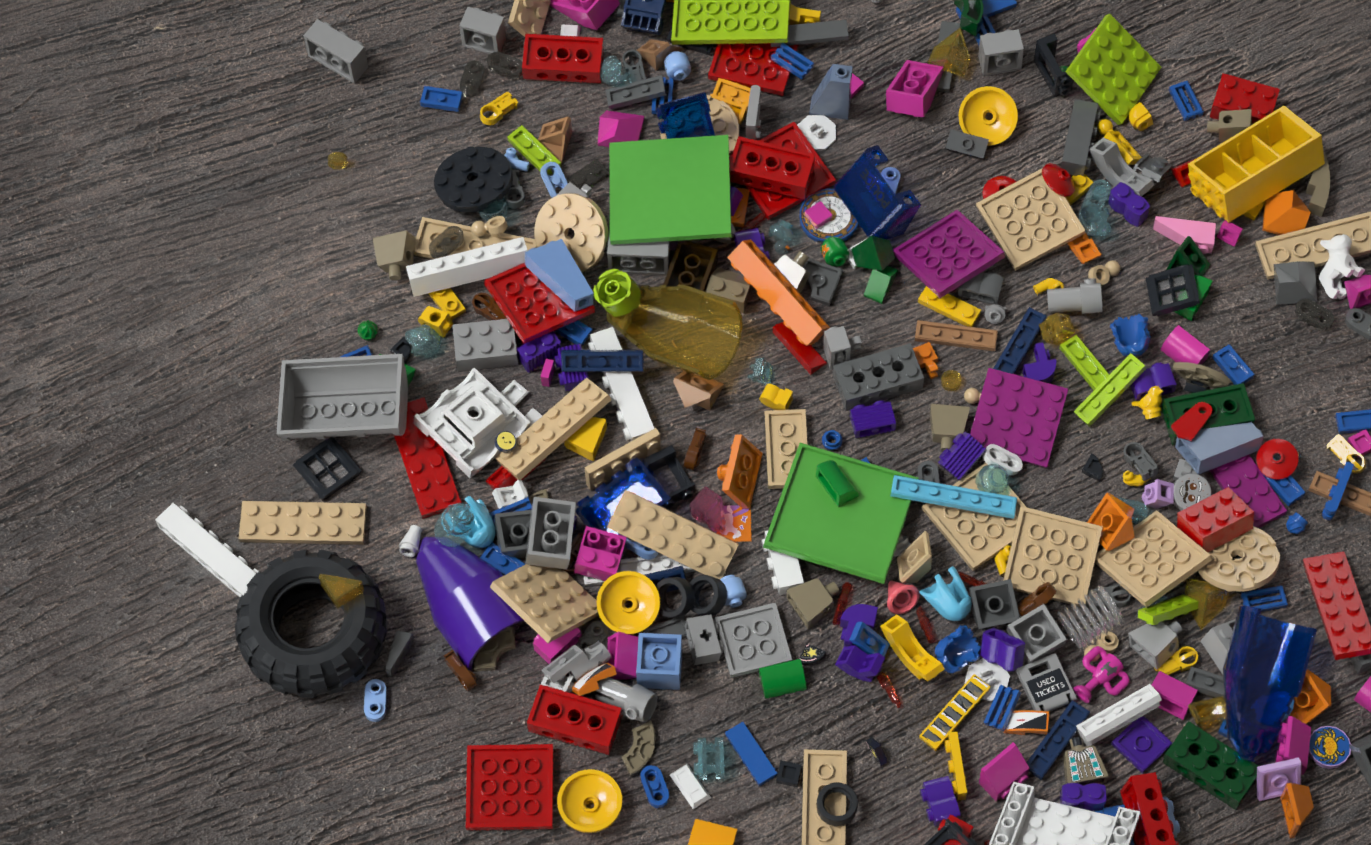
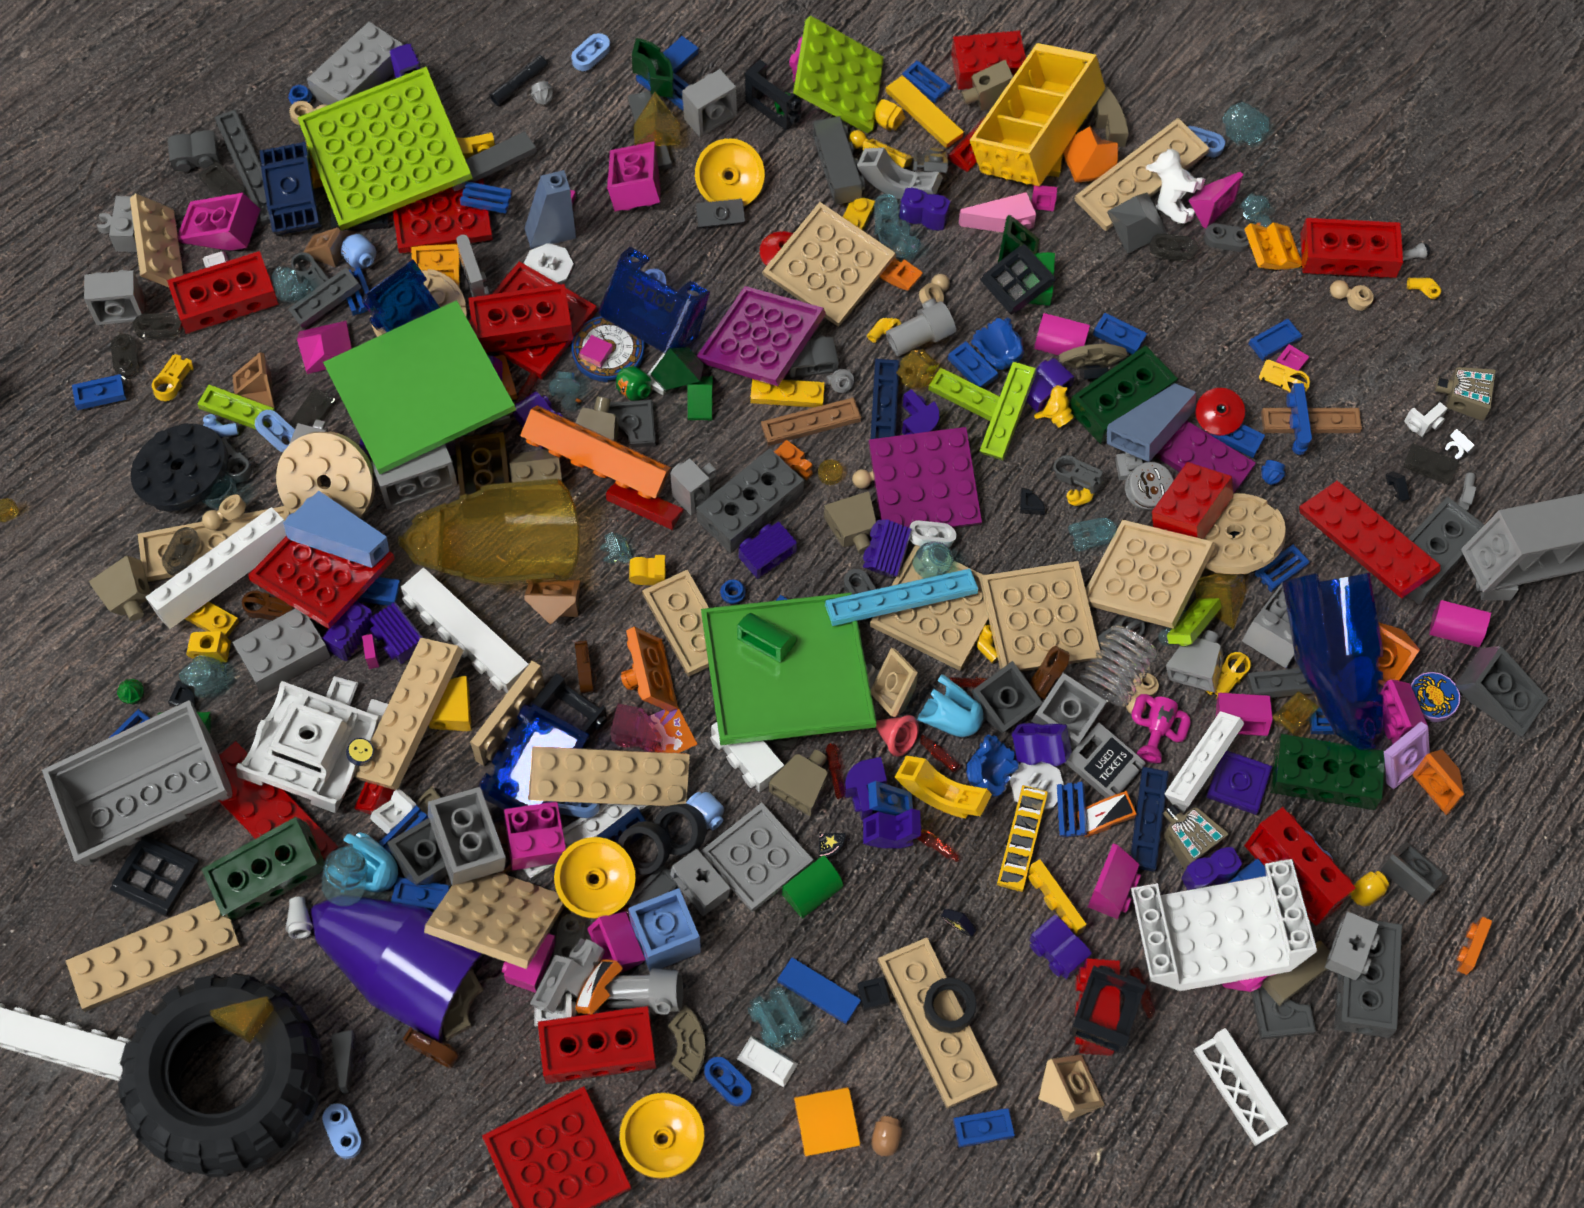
camera: 30 degrees left, 0 degrees up
(402, 495) = (249, 862): none -> dark green brick
(602, 360) = (430, 610): dark blue plate -> none
(617, 292) = (413, 525): lime brick -> none
(1058, 179) = (840, 210): red dish -> none
(1103, 343) = (972, 365): none -> blue plate
(1116, 521) = (1089, 547): orange slope -> none
(1152, 494) = (1112, 504): lavender brick -> none
(1171, 125) = (924, 111): none -> yellow tile
(1192, 421) = (1116, 407): red piece -> none

